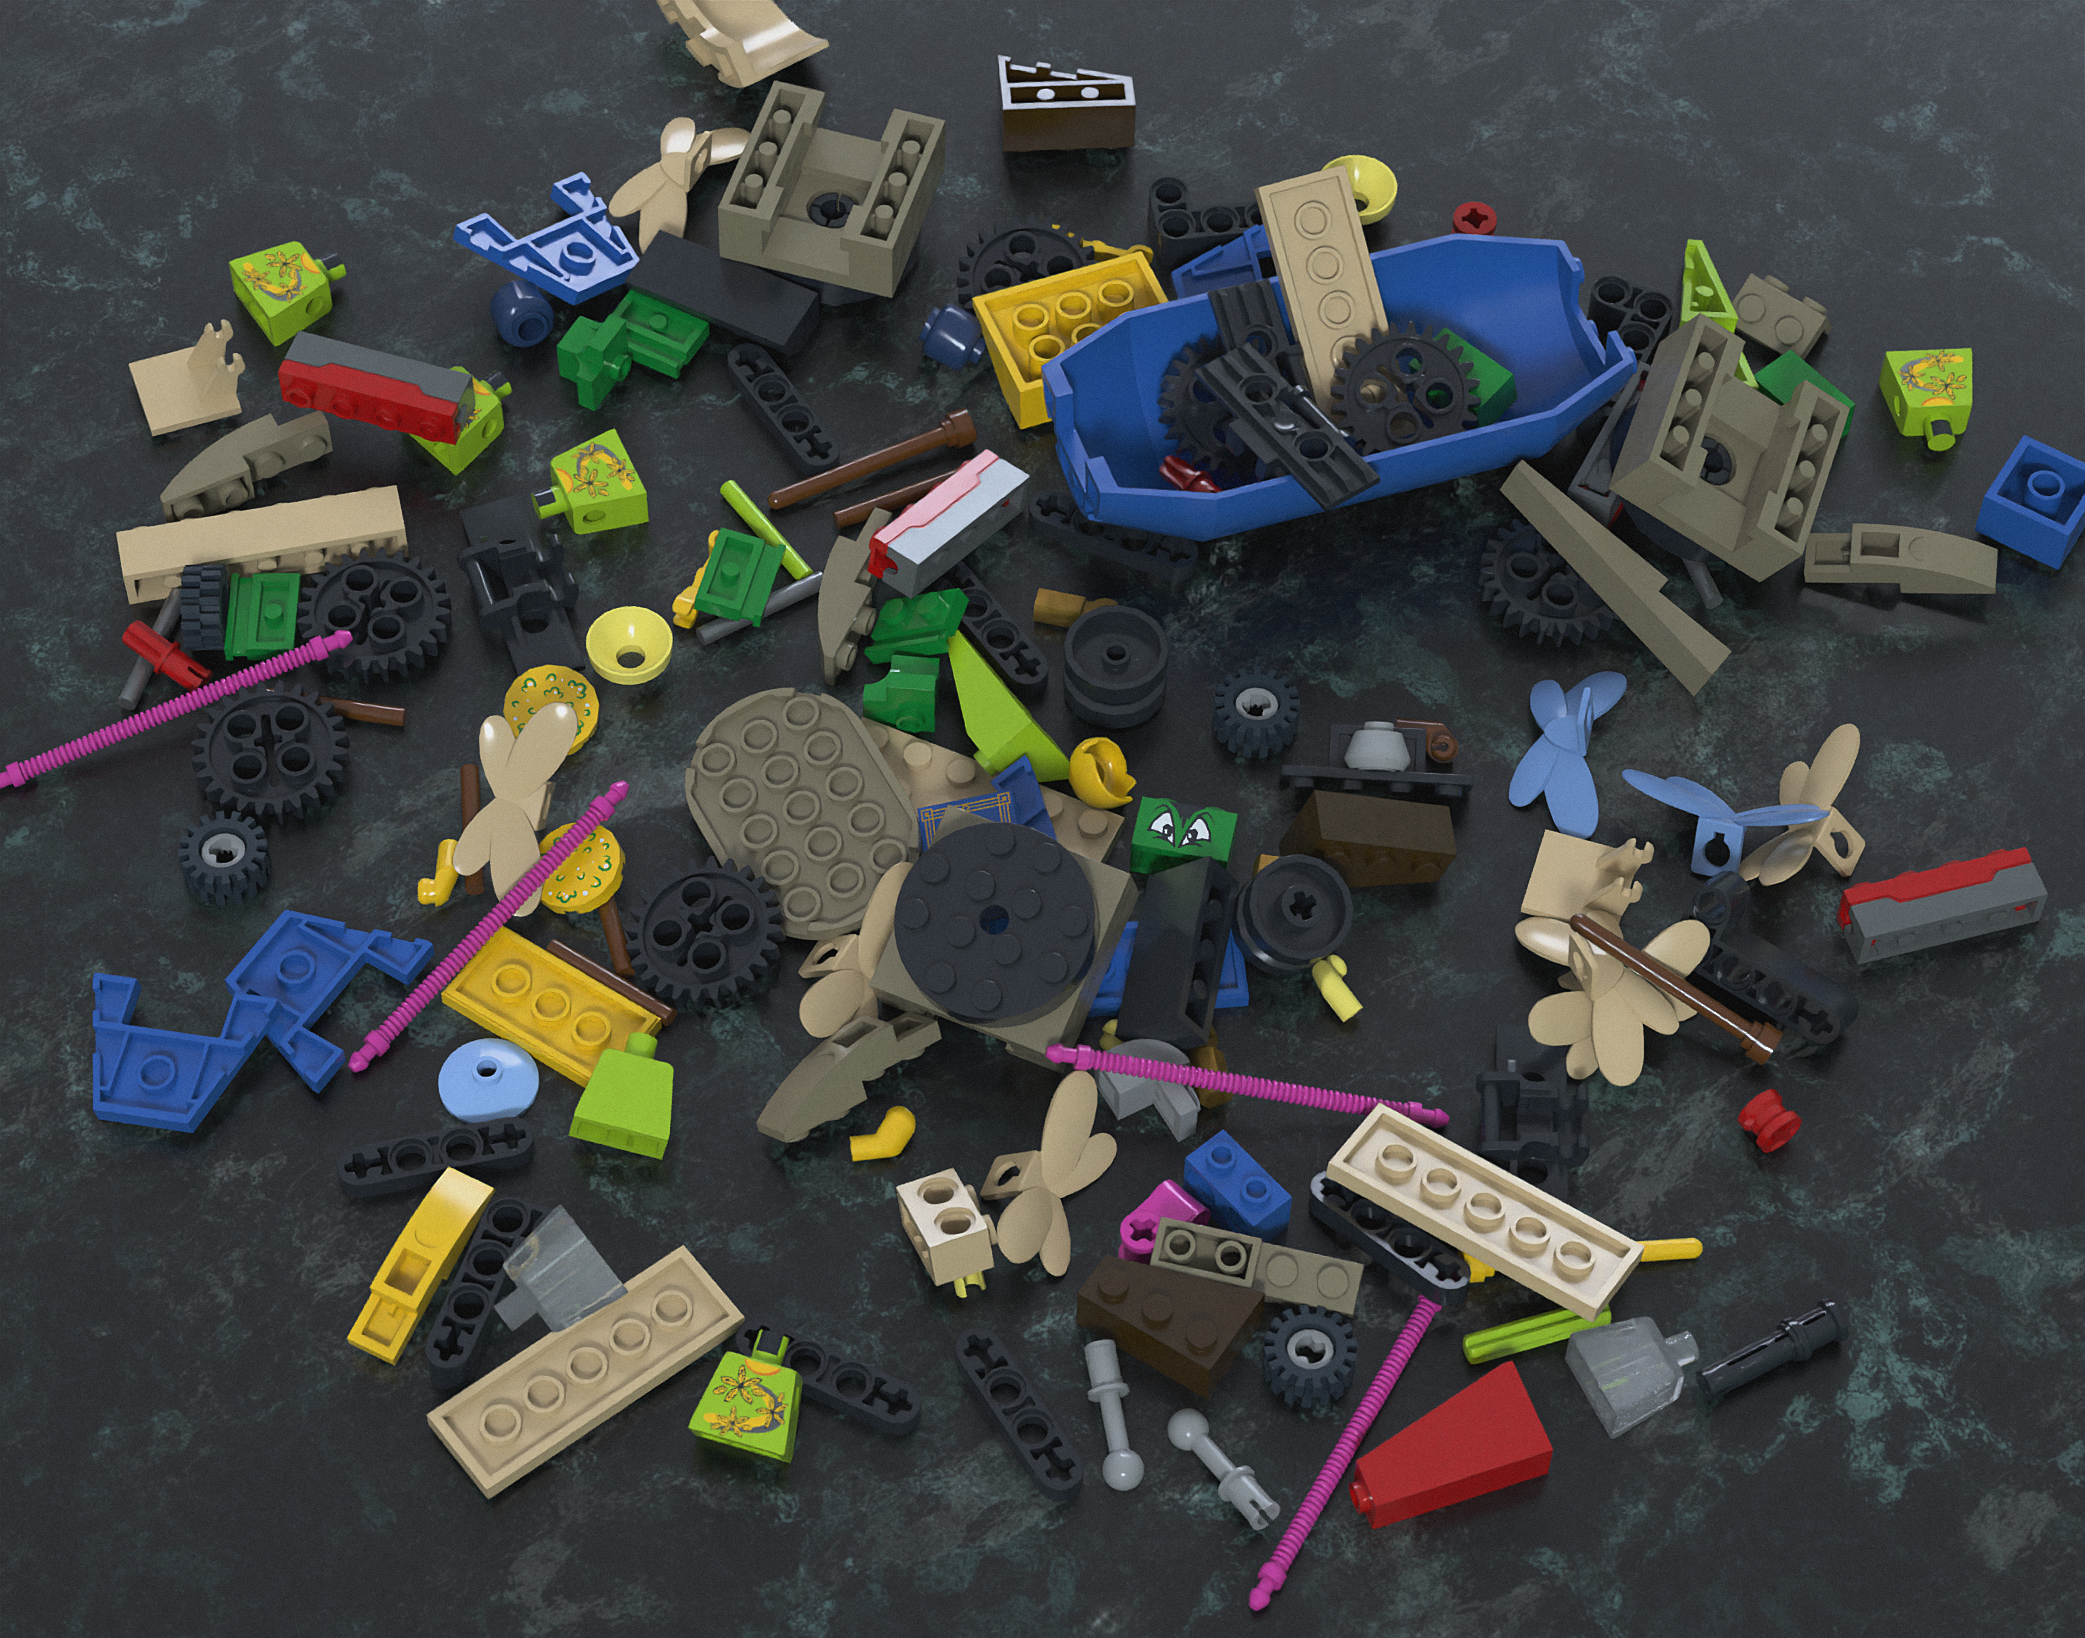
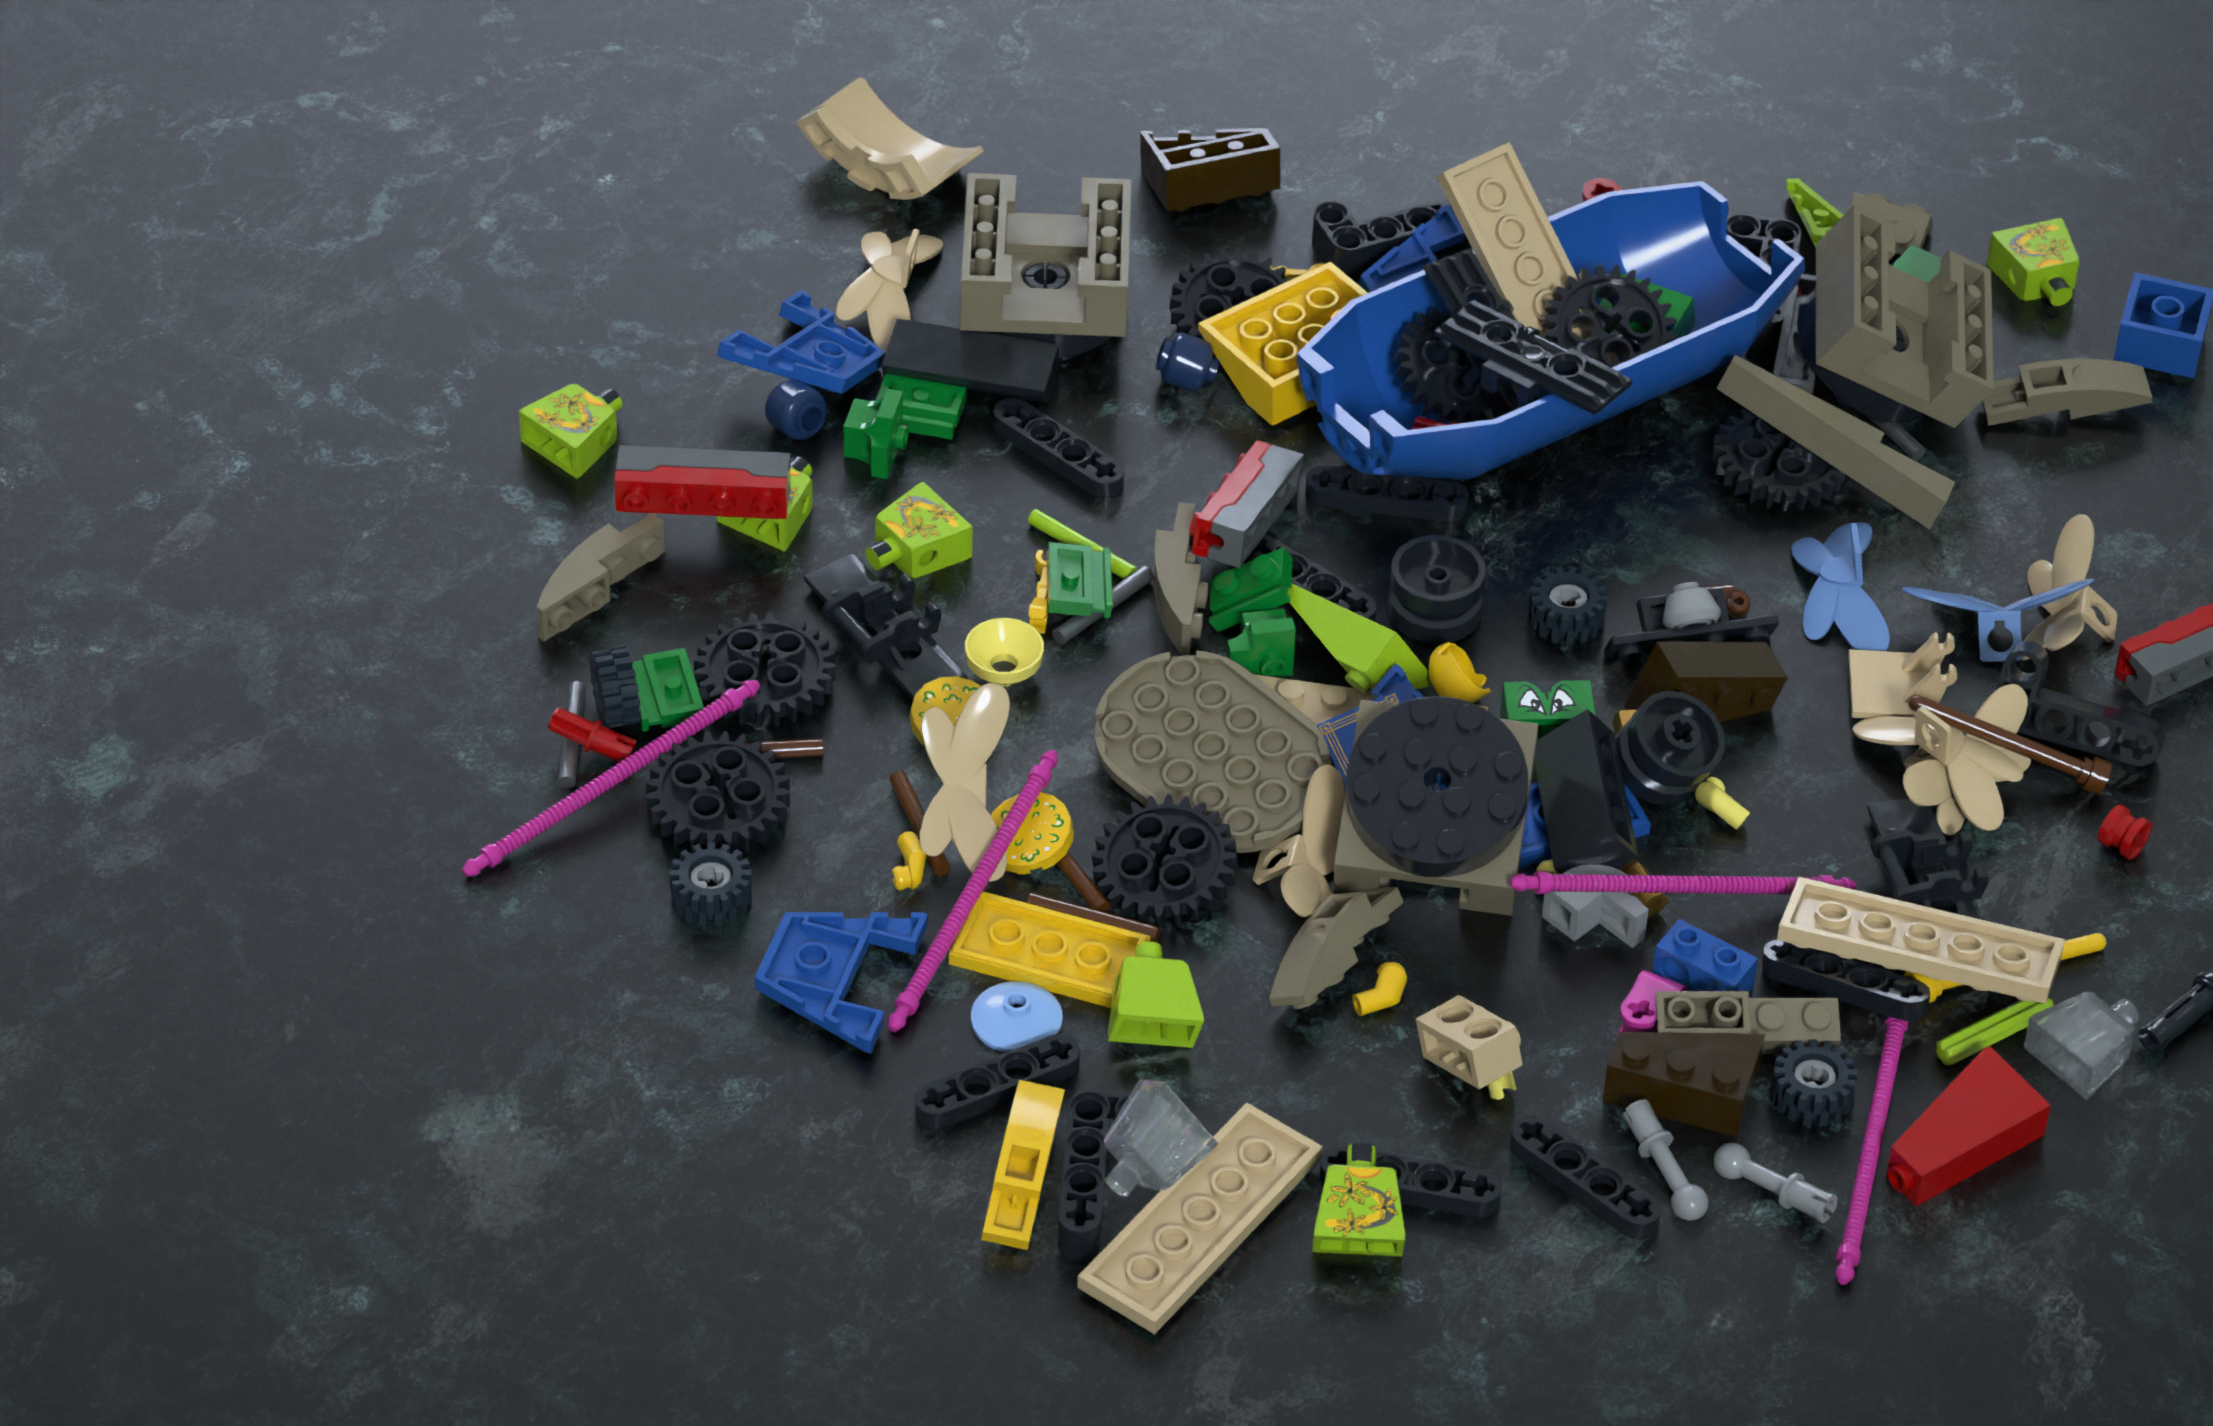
camera: 15 degrees left, 10 degrees down
(163, 1074) = (727, 1061): blue wing -> none
(189, 383) = (517, 517): tan plate -> none
(263, 540) = (648, 624): tan brick -> none
(888, 502) = (1192, 495): reddish brown bar -> none
(954, 430) = (1217, 435): reddish brown piece -> none
(1063, 1166) = (1543, 985): tan piece -> none
(1064, 608) = (1368, 557): pearl gold bar -> none

